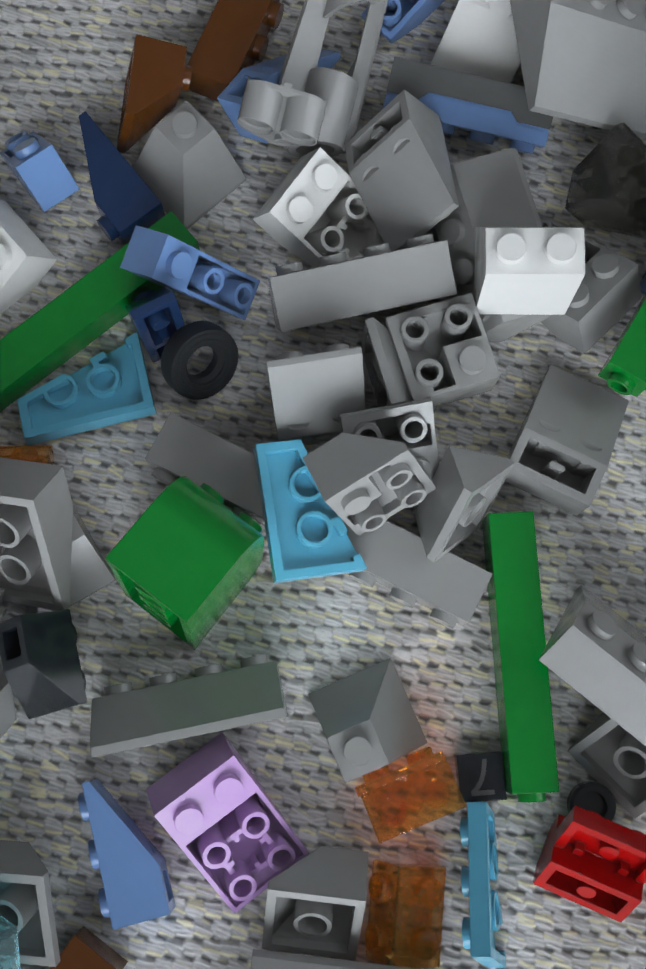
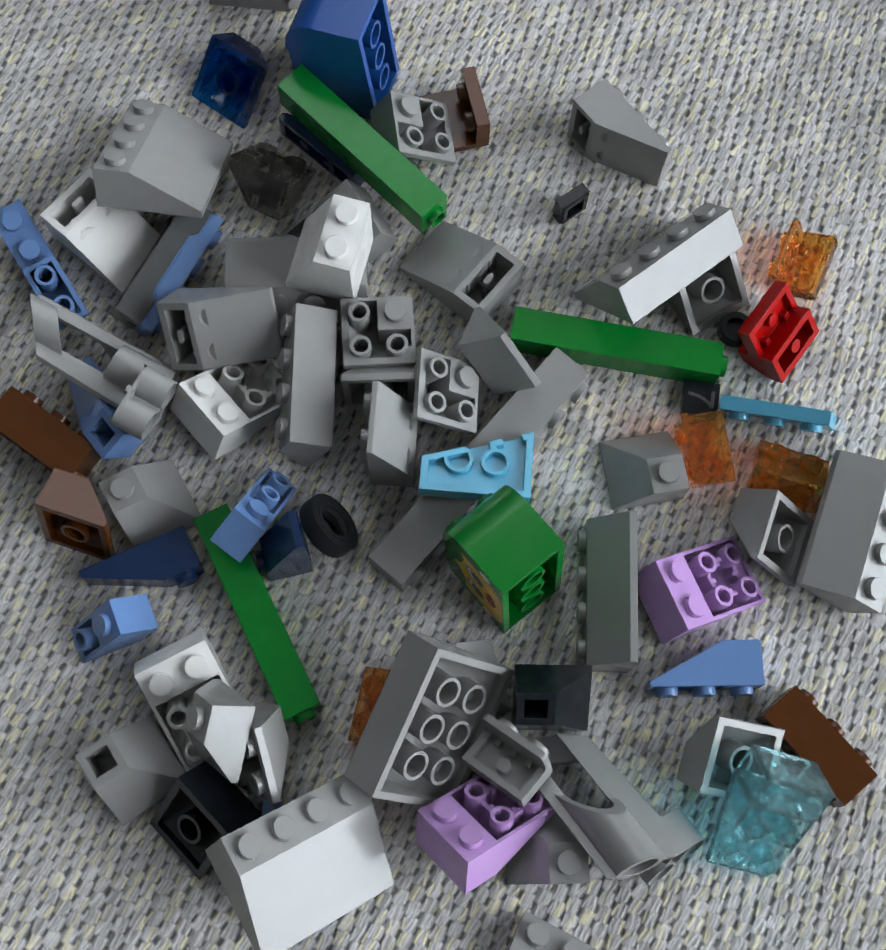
camera: 75 degrees left, 5 degrees down
(96, 396) = (332, 623): medium azure wing -> none
(367, 479) = (469, 408): light grey slope -> none

